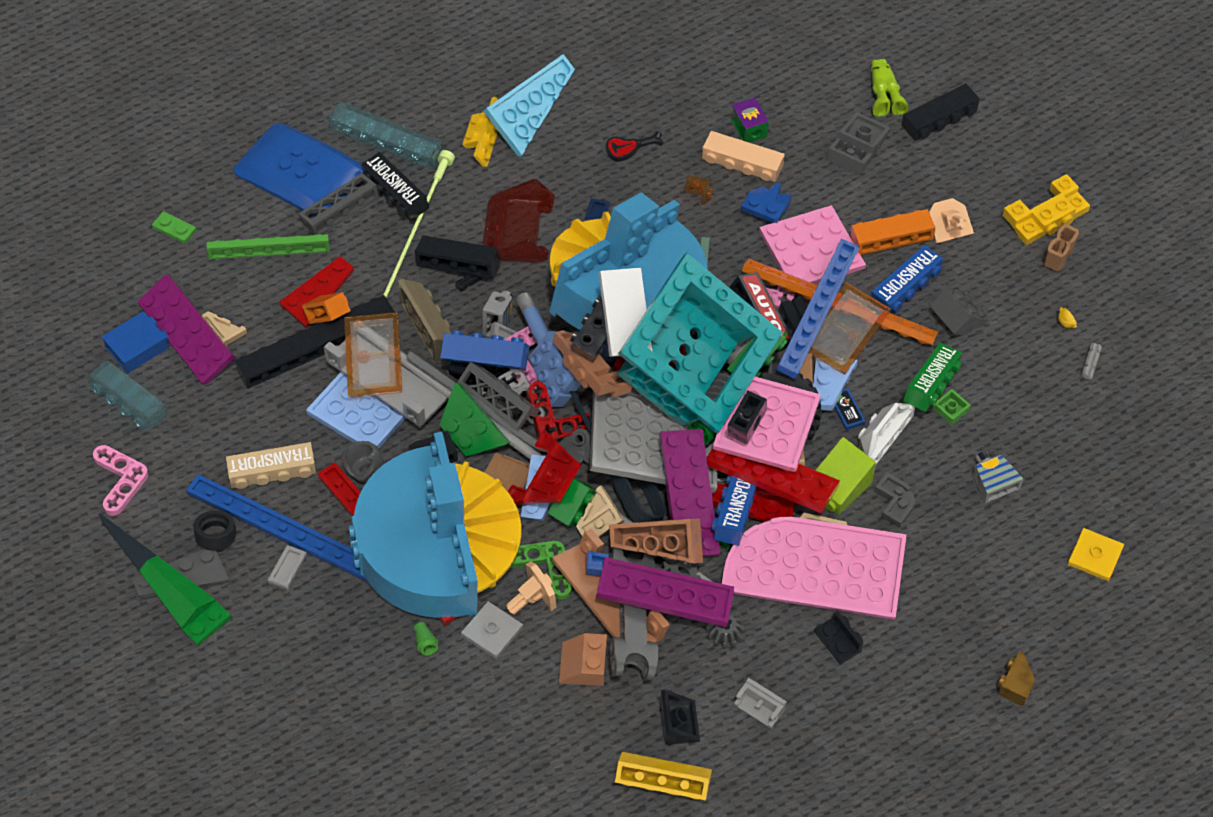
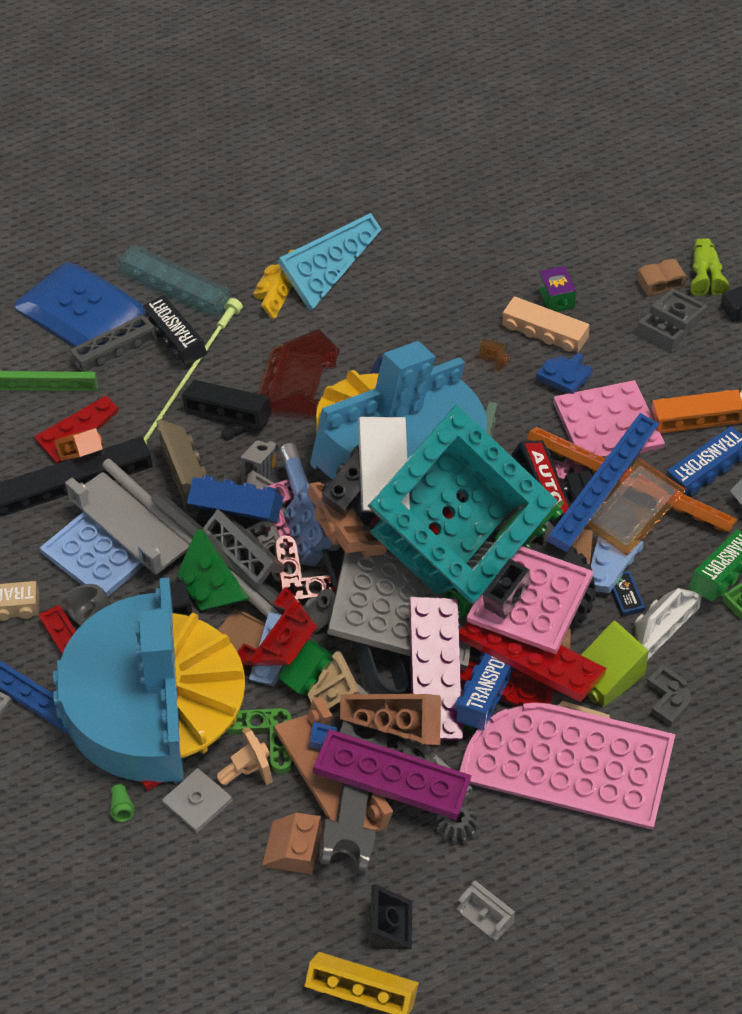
camera: 10 degrees right, 5 degrees down
(373, 354) = (117, 495): clear door -> none
(623, 149) = (419, 310): black piece -> none
(839, 638) = (587, 845): black bracket -> none
(844, 101) = (661, 277): none -> medium nougat brick

